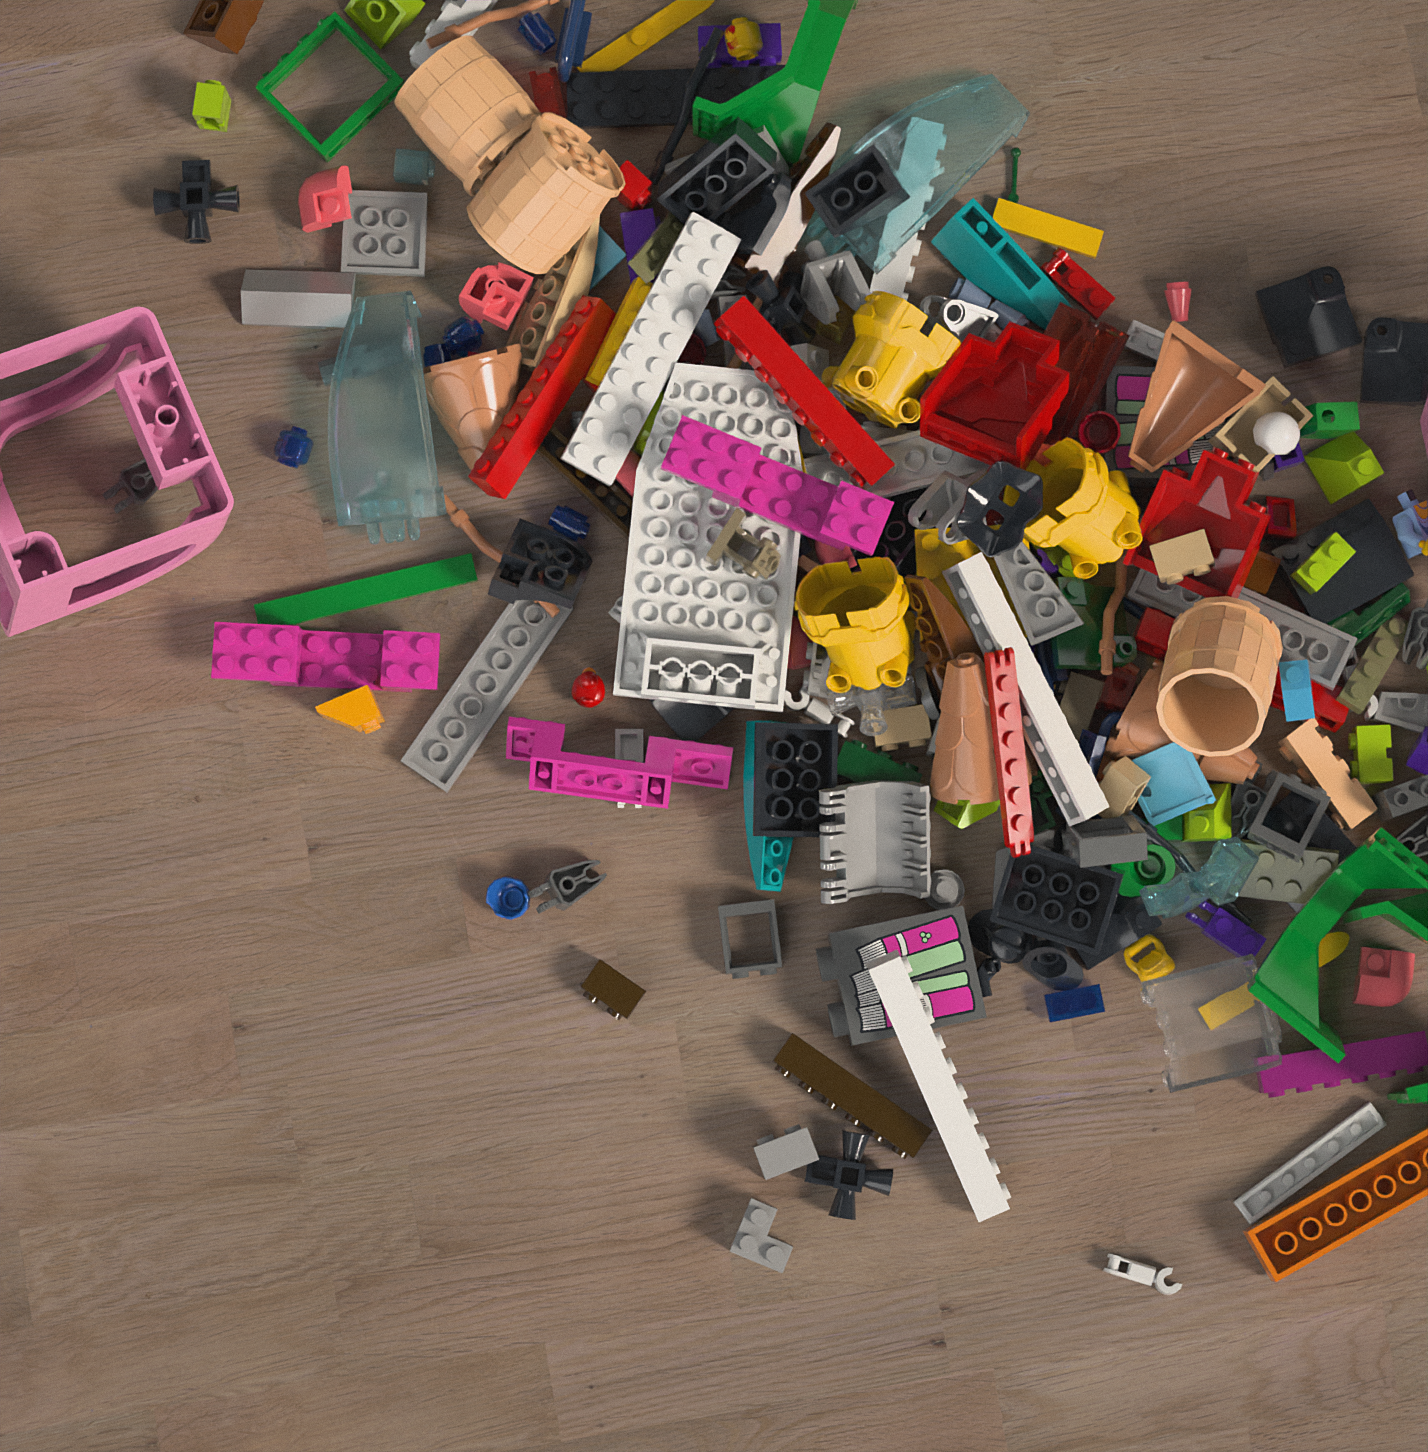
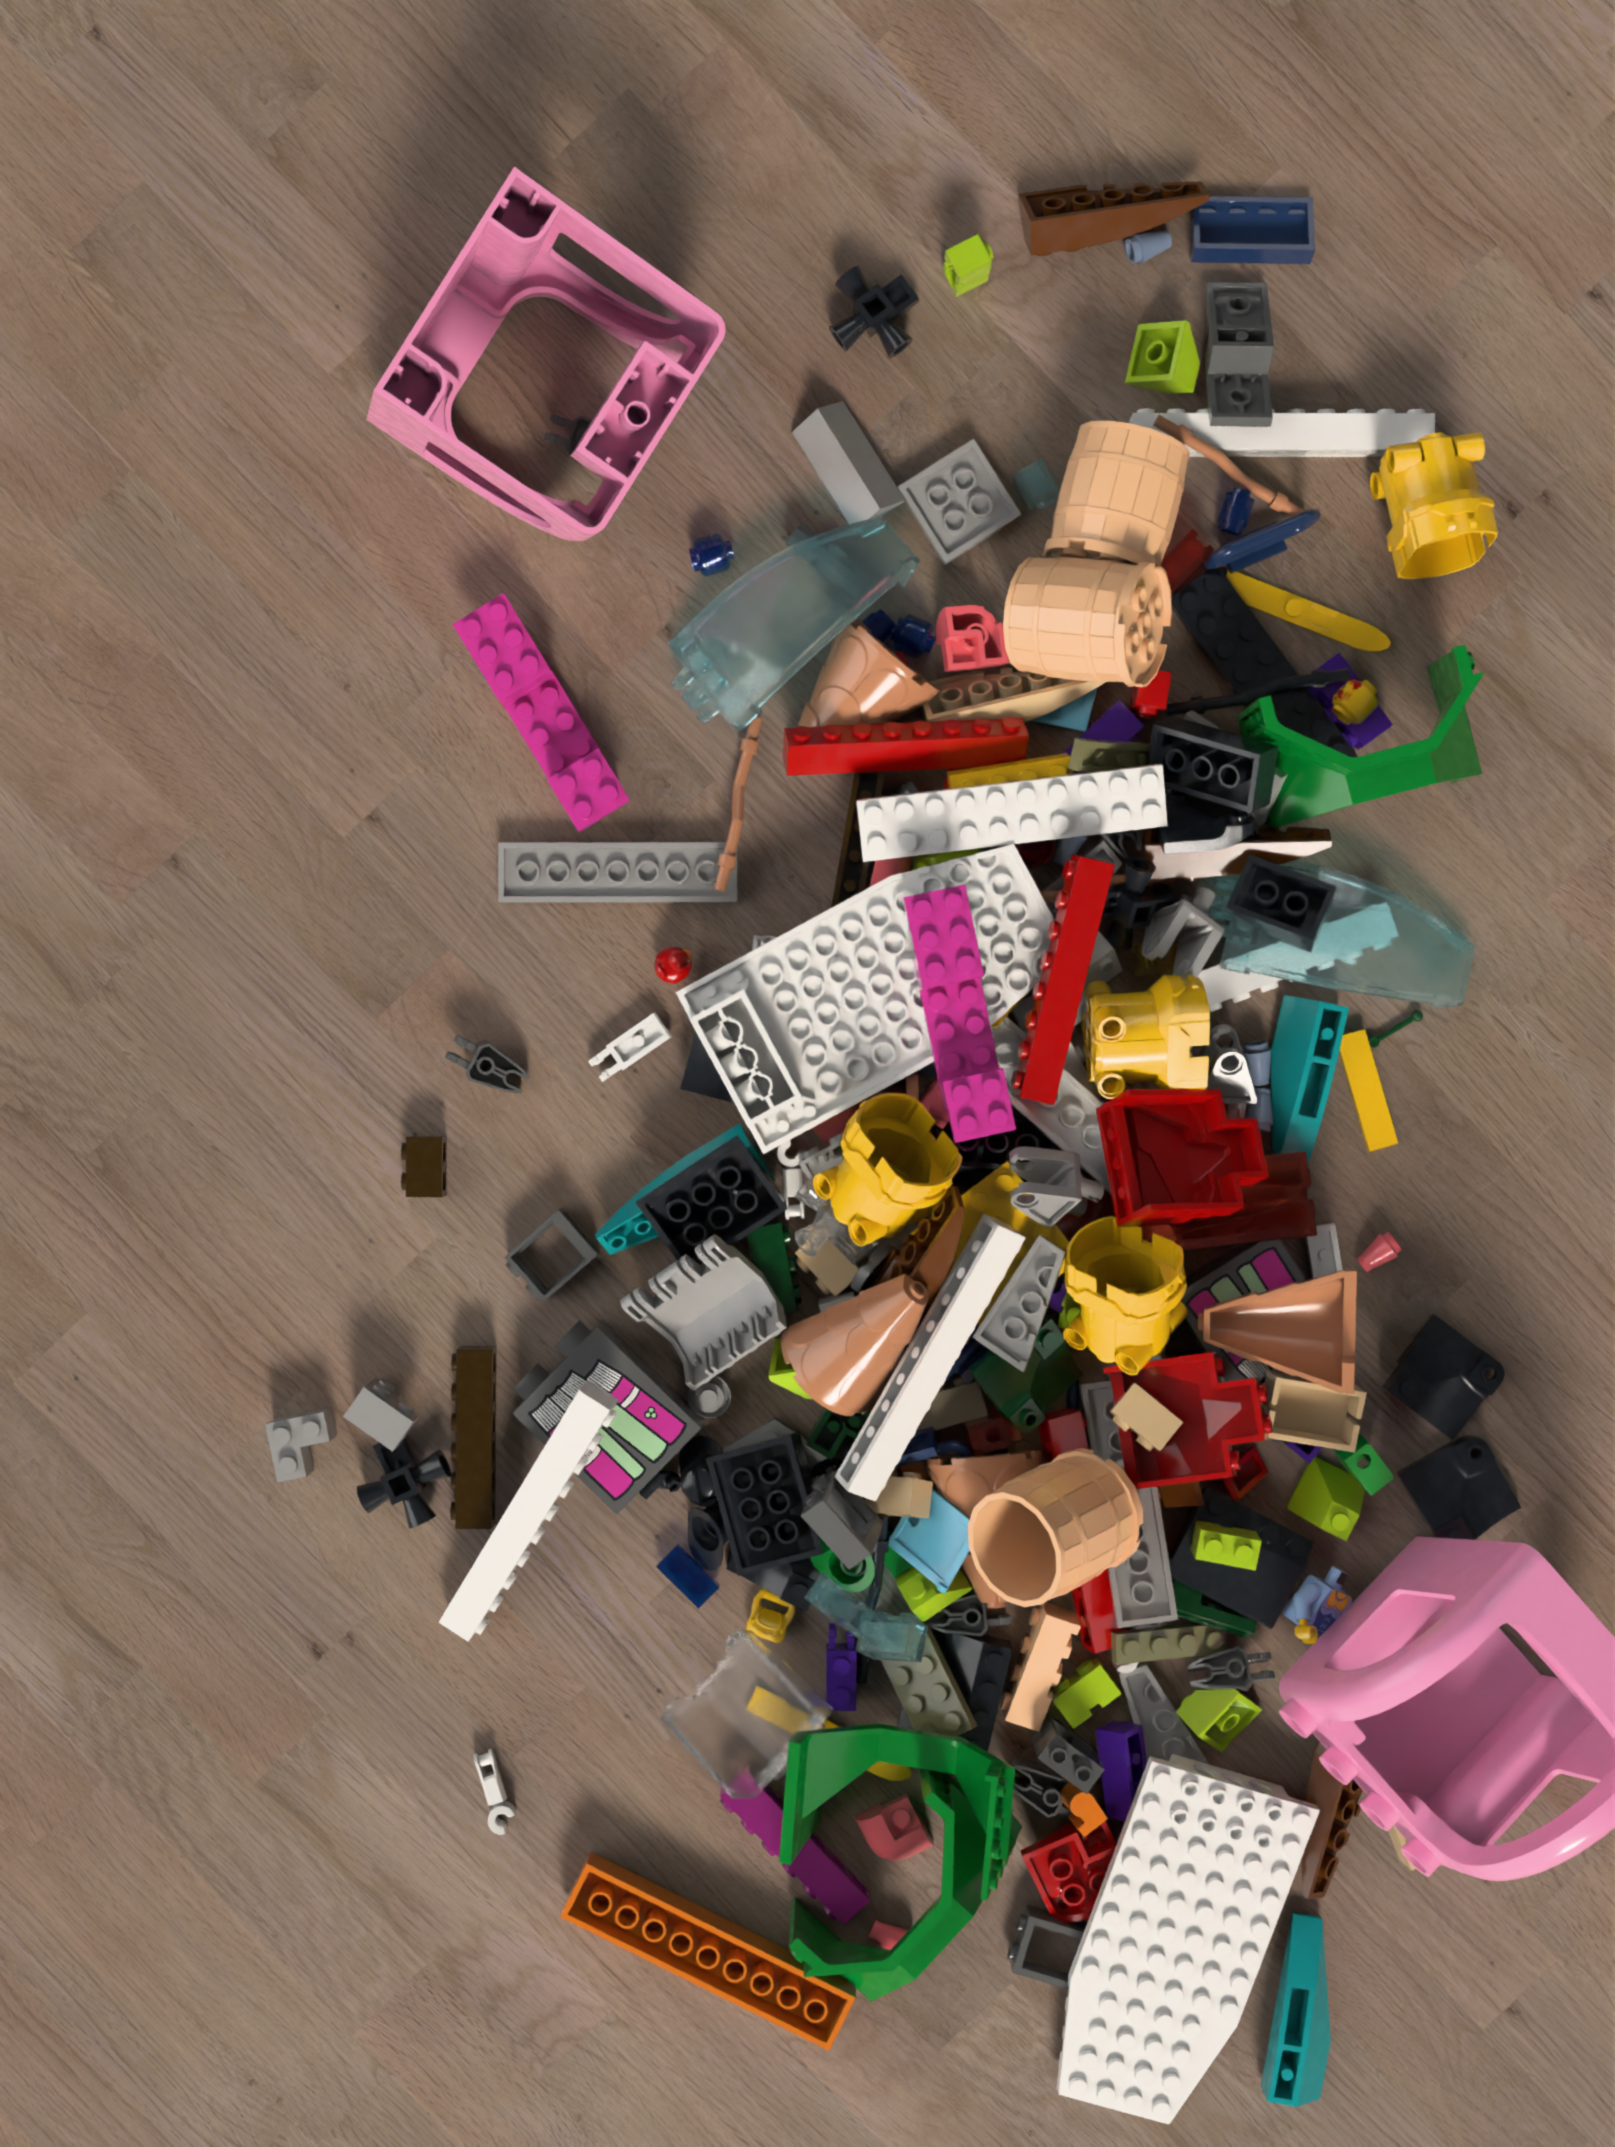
camera: 60 degrees right, 5 degrees up
(325, 199) = (953, 426): coral brick -> none
(354, 710) = (512, 772): light orange slope -> none
(356, 122) = (1080, 313): green window -> none
(368, 592) = (627, 709): green tile -> none
(508, 897) = (443, 1020): blue hair -> none
(540, 567) = (750, 849): black slope -> none
(569, 522) = (810, 846): clear blue brick -> none
(611, 778) = (599, 1031): dark pink bracket -> none
(732, 539) = (884, 1004): dark tan tile -> none
(983, 496) = (1076, 1207): black piece -> none
(1009, 750) = (863, 1381): hinge -> none
(1078, 284) = (1334, 1152): red plate -> none
(1099, 431) = (1209, 1267): dark red hair -> none
(1107, 645) = (1020, 1402): nougat bar -> none
(1276, 433) = (1315, 1431): white hair -> none
(1277, 841) = (946, 1670): dark grey window -> none
(1297, 690) = (1094, 1598): dark azure slope -> none
(1309, 1163) = (689, 1870): white tile -> none

